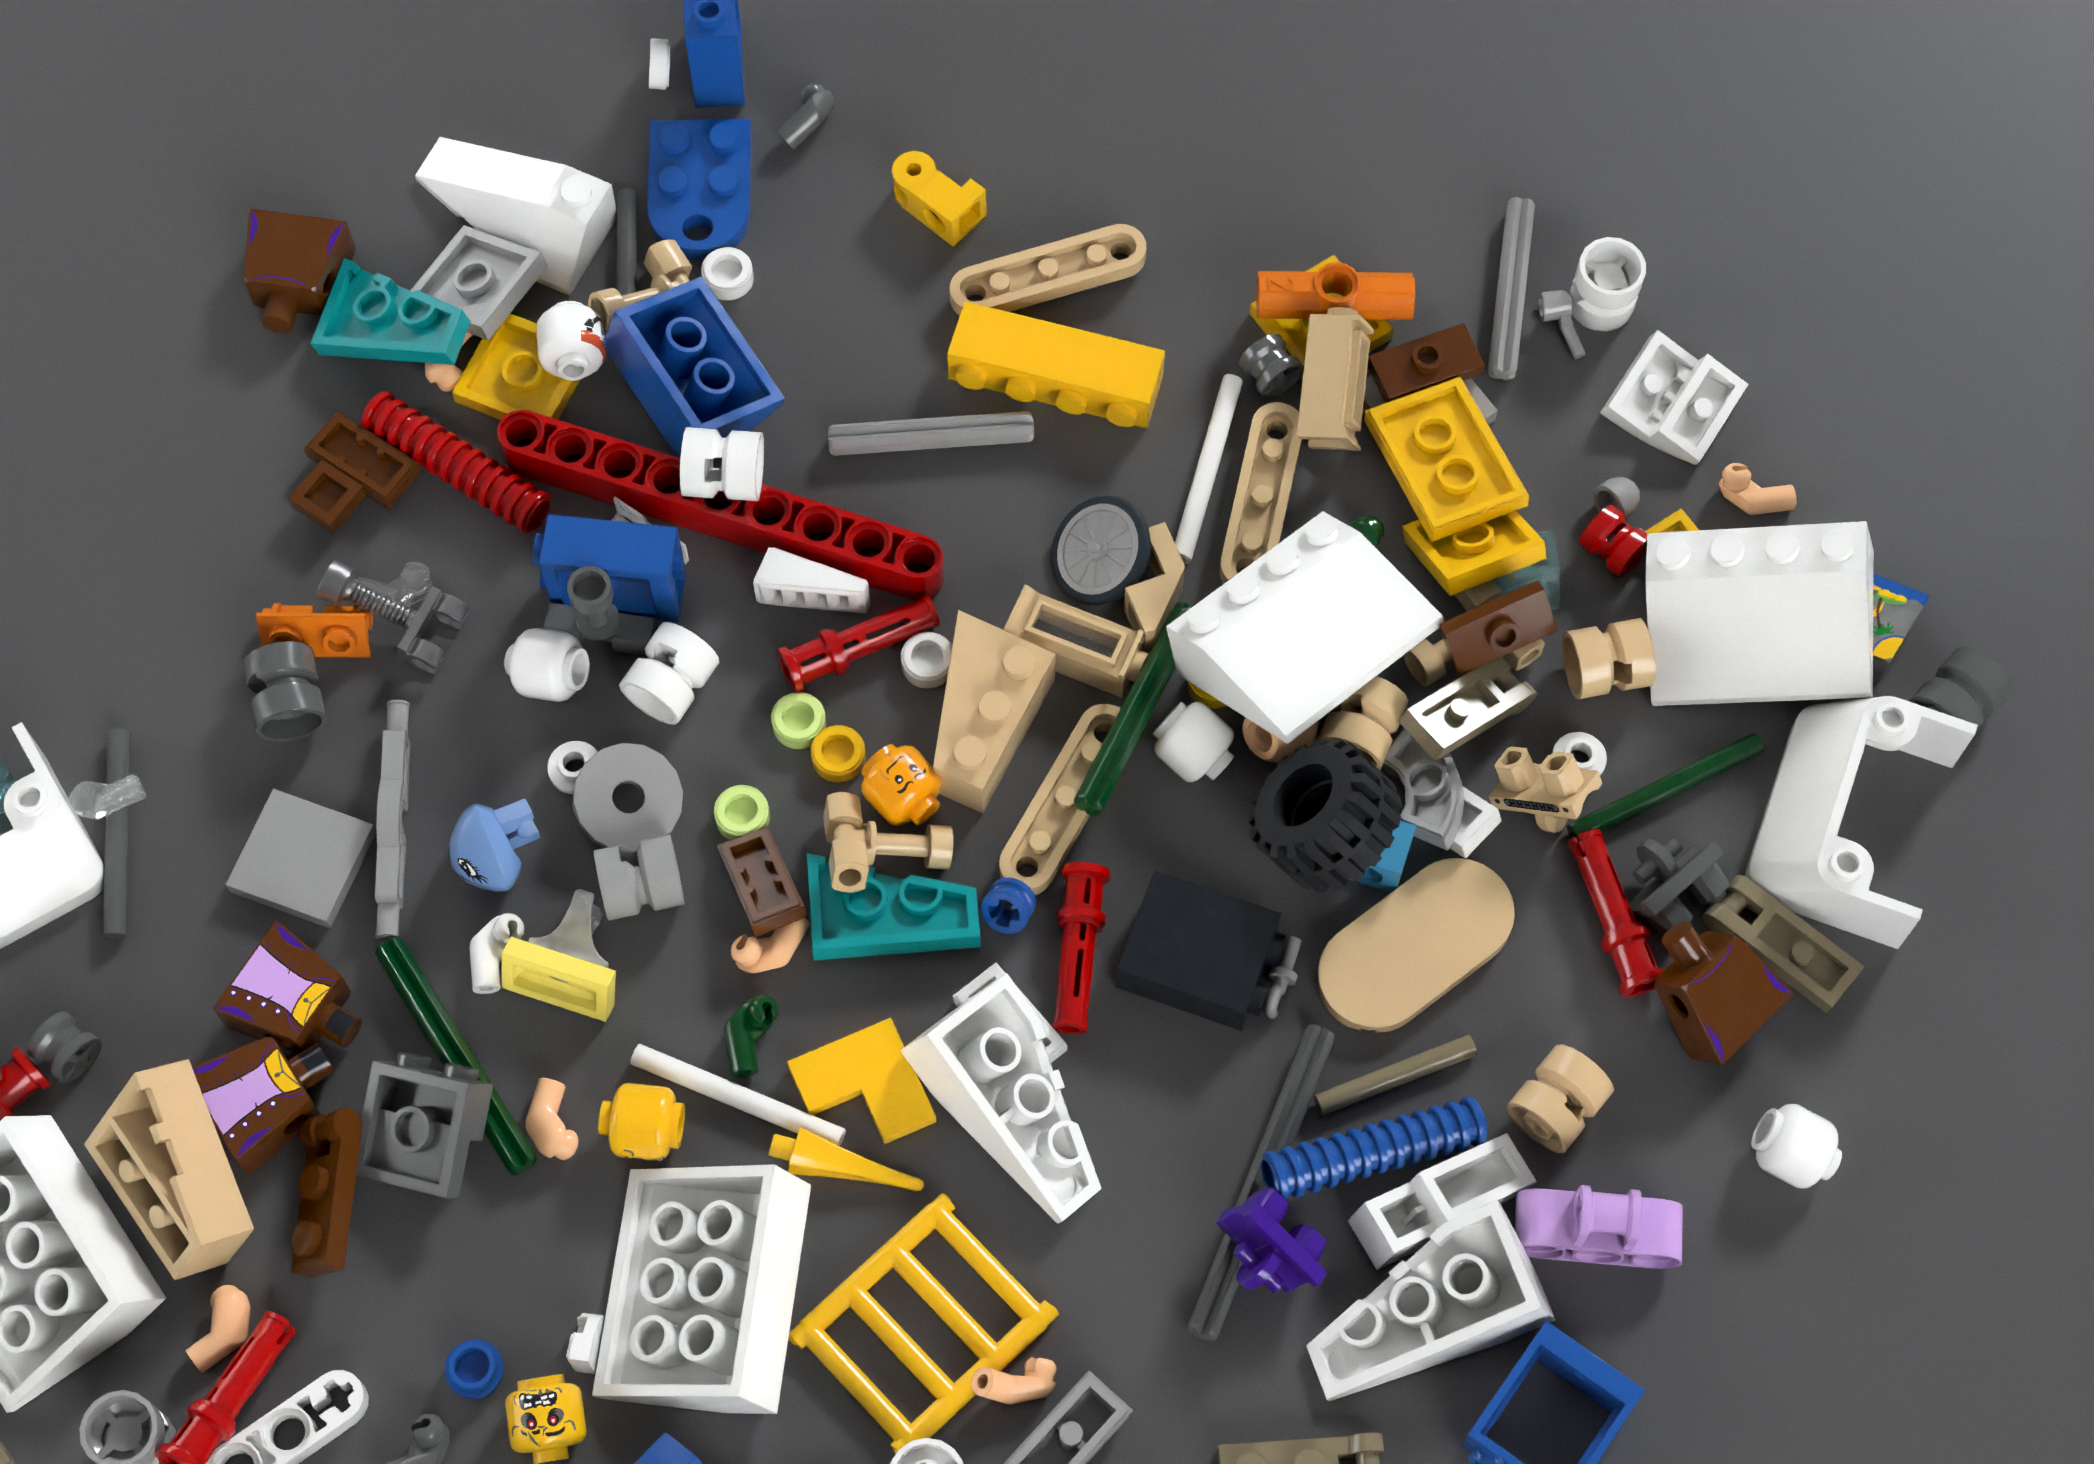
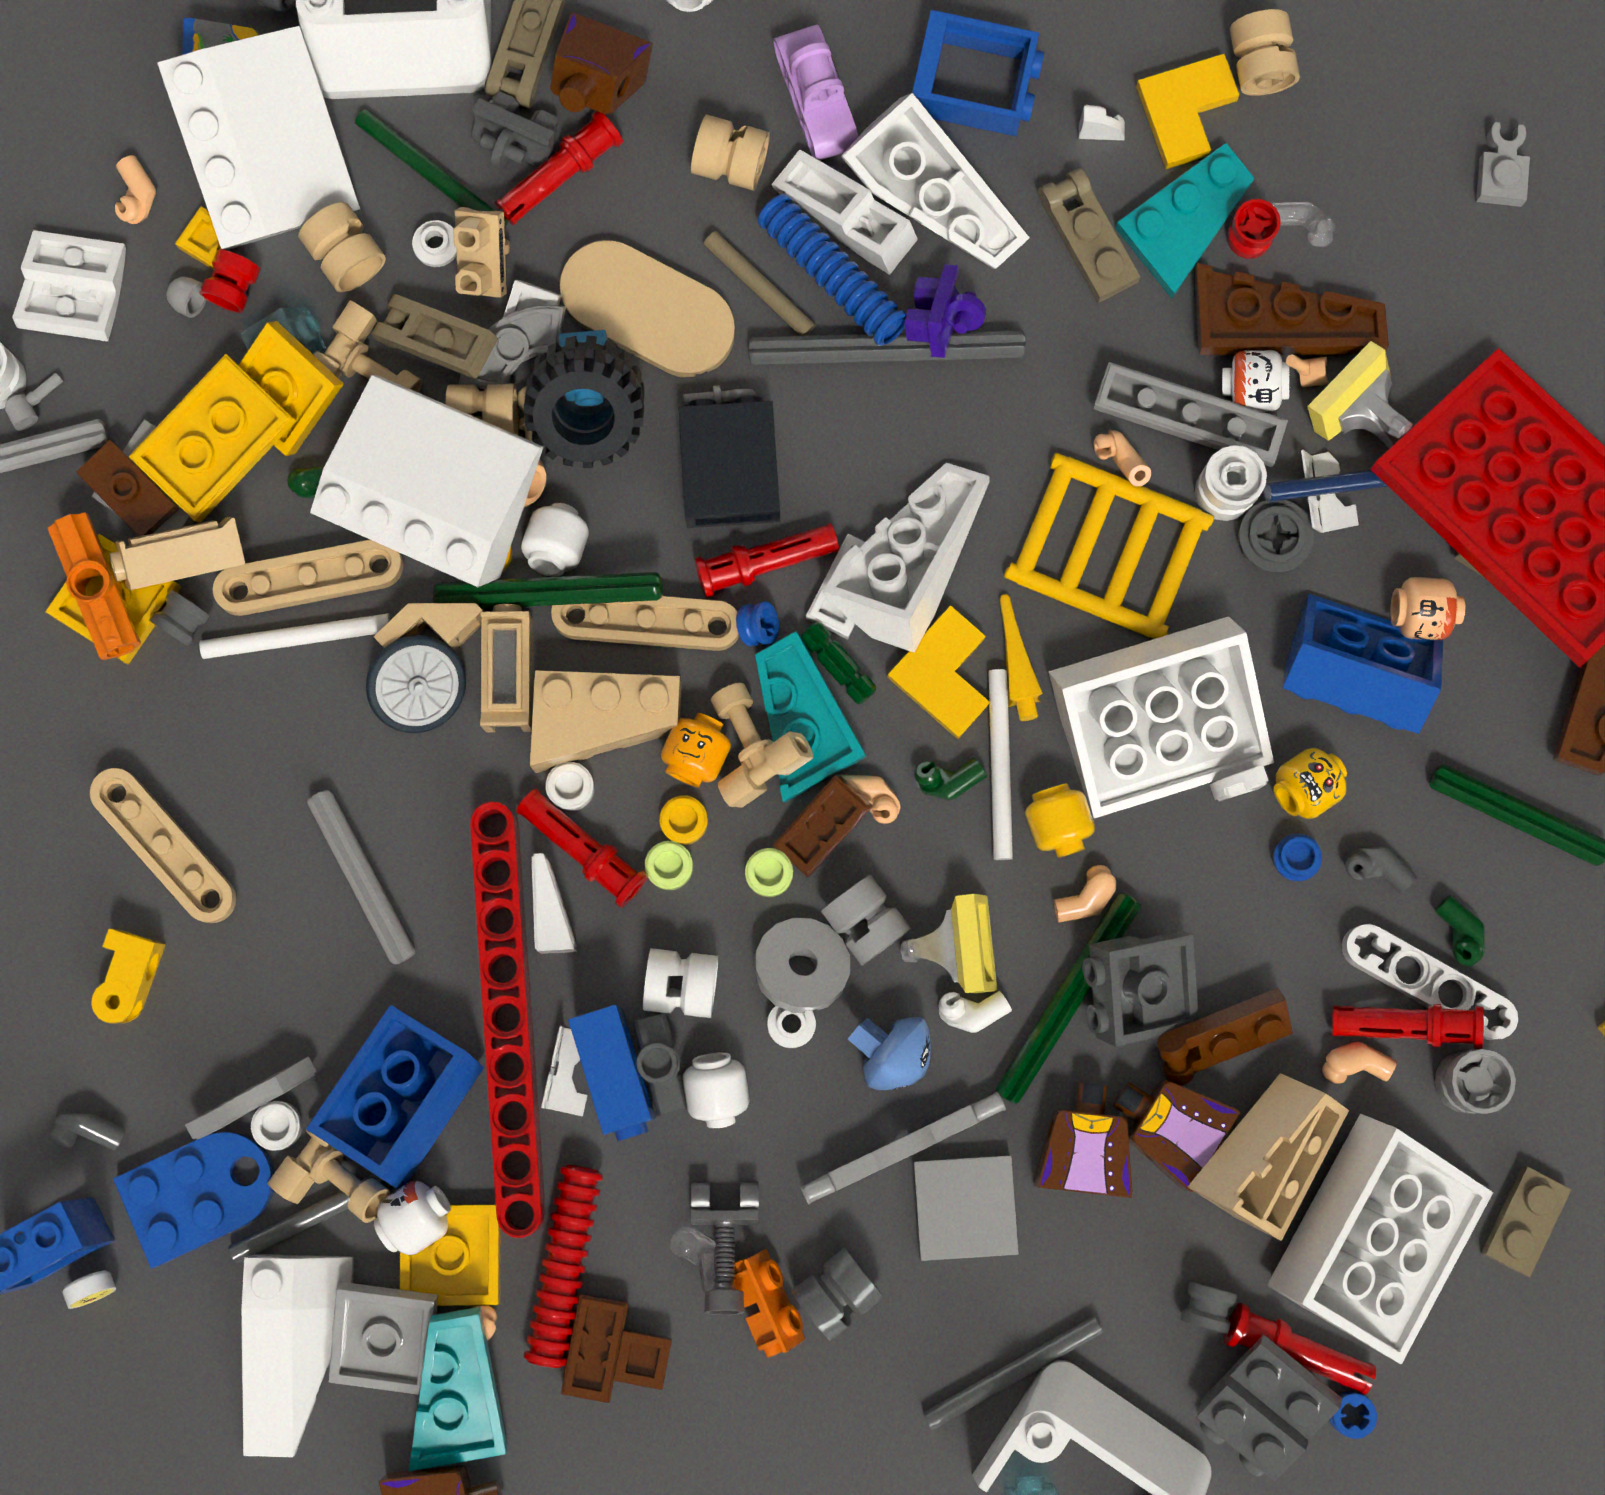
camera: 115 degrees left, 15 degrees up
(99, 800) = (997, 1394): clear arm -> none
(741, 464) = (487, 1015): white wheel -> none
(762, 256) = (251, 1099): none -> light grey tile
(928, 975) = (838, 663): none -> dark green axle
(1055, 365) = (255, 798): yellow brick -> none
(1498, 627) = (359, 331): reddish brown plate -> none

